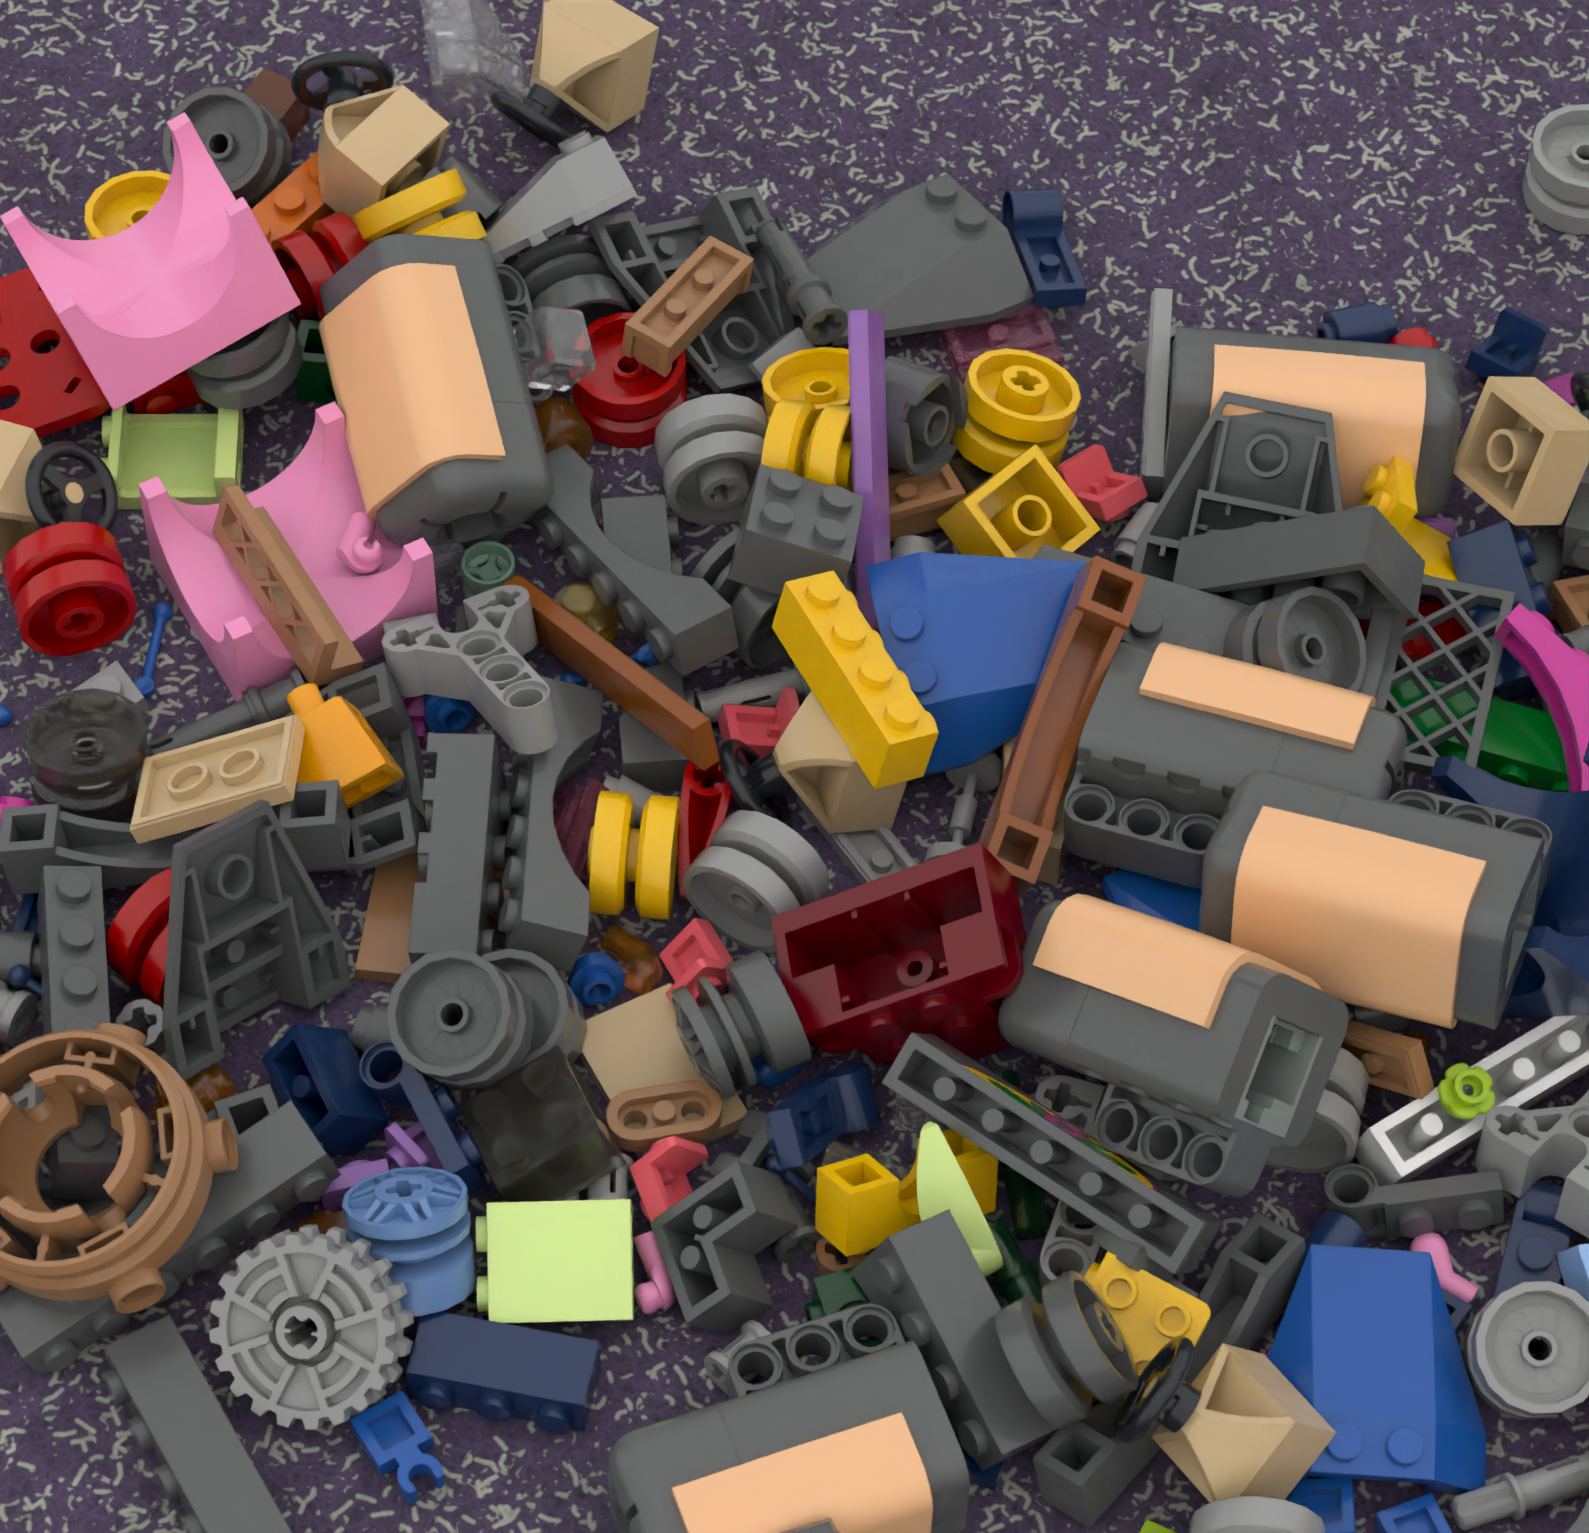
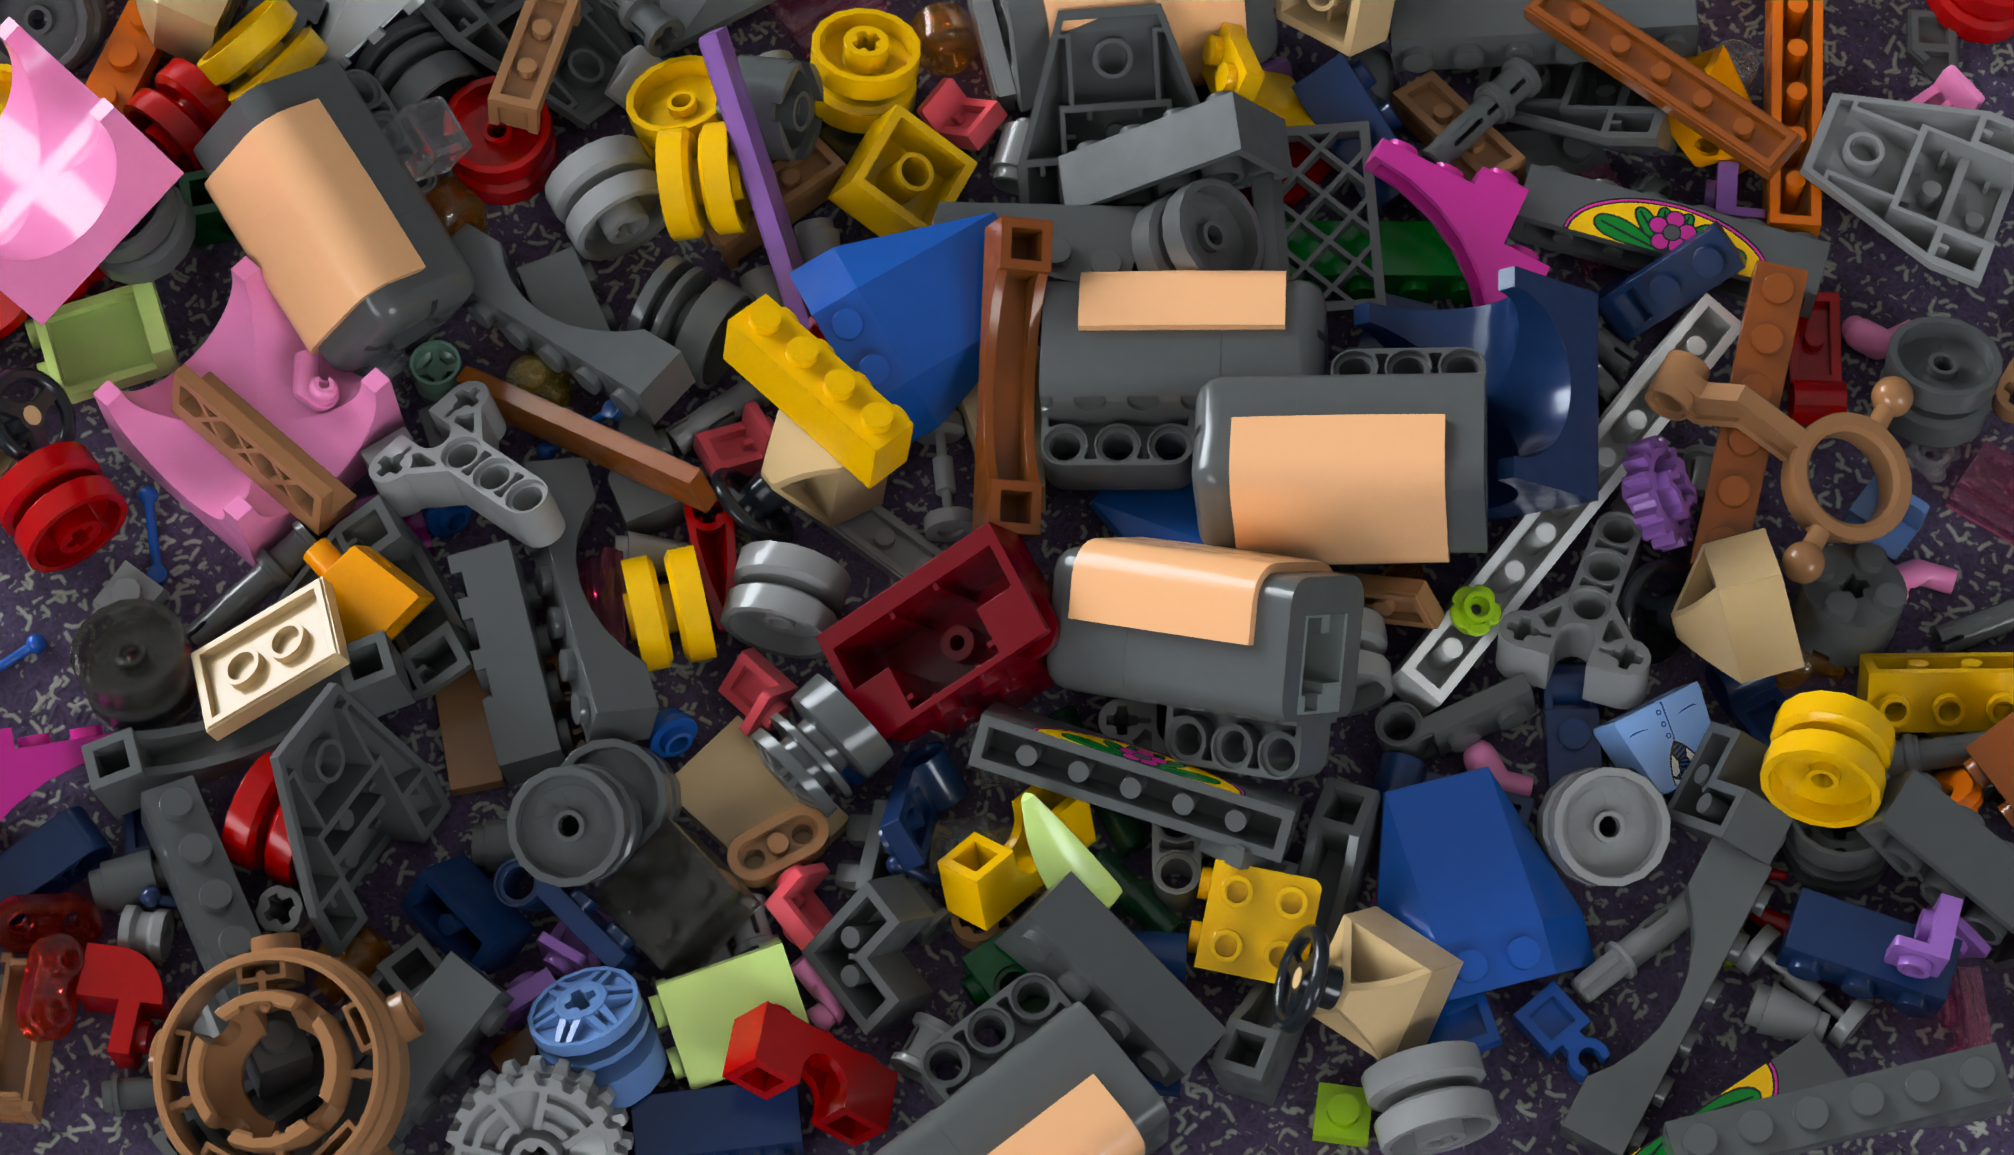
camera: 15 degrees left, 10 degrees up
(638, 954) = (702, 698): clear orange arm -> none
(650, 1366) = (848, 1087): none -> red arch
(794, 530) = (714, 261): dark grey brick -> none
(1066, 1350) = (1213, 966): dark grey wheel -> none
(1109, 410) = (945, 38): none -> clear orange head

